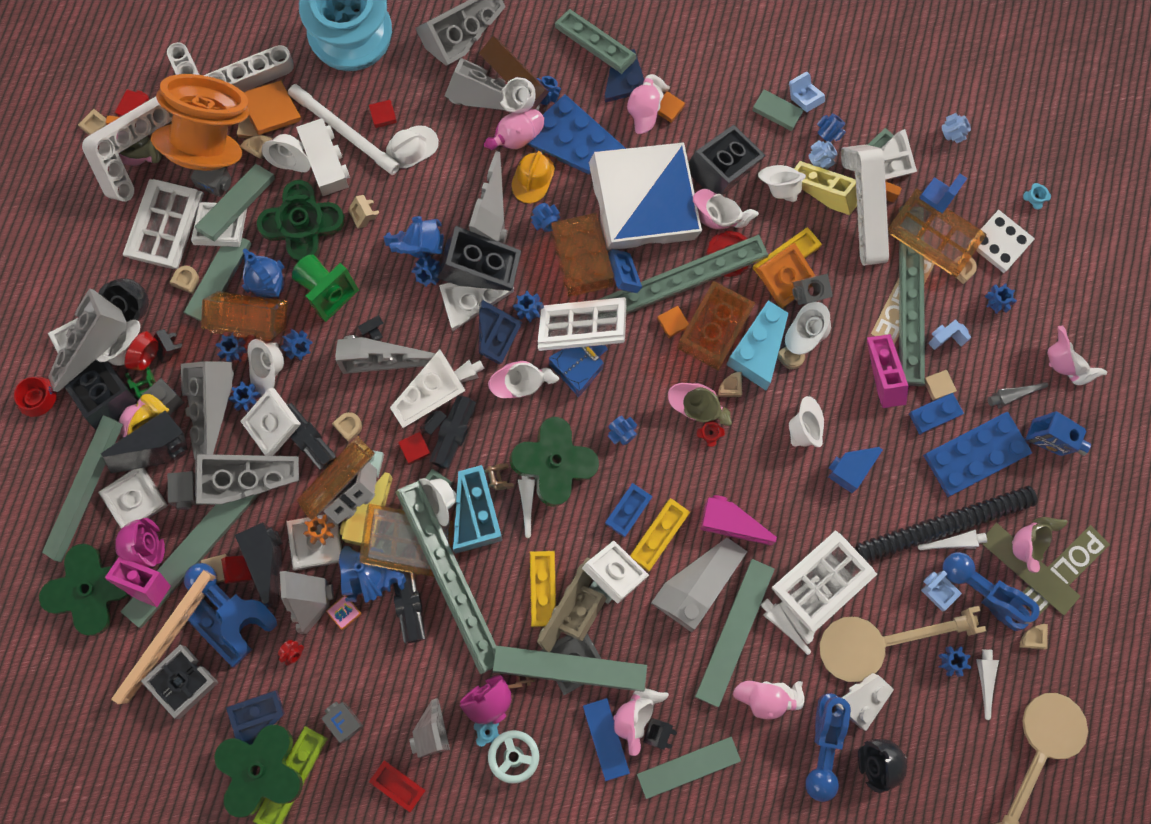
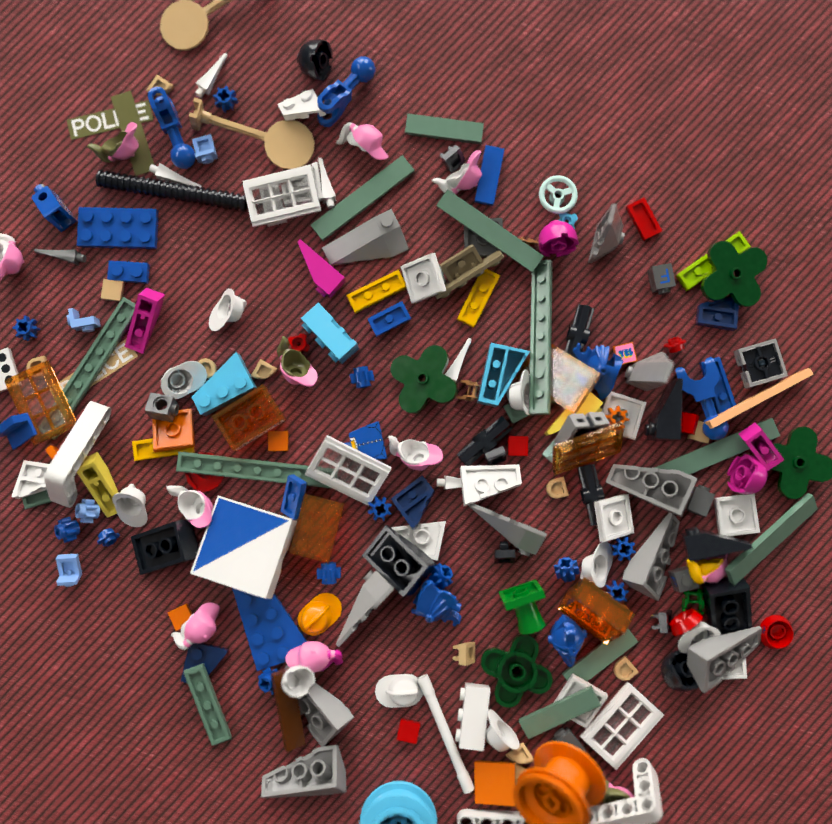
camera: 150 degrees left, 10 degrees up
(683, 457) = (329, 334): none -> medium azure wedge
(777, 110) = (98, 568): sand green tile -> none
(787, 141) = (107, 537): none -> blue plate
(853, 467) = (211, 263): blue slope -> none

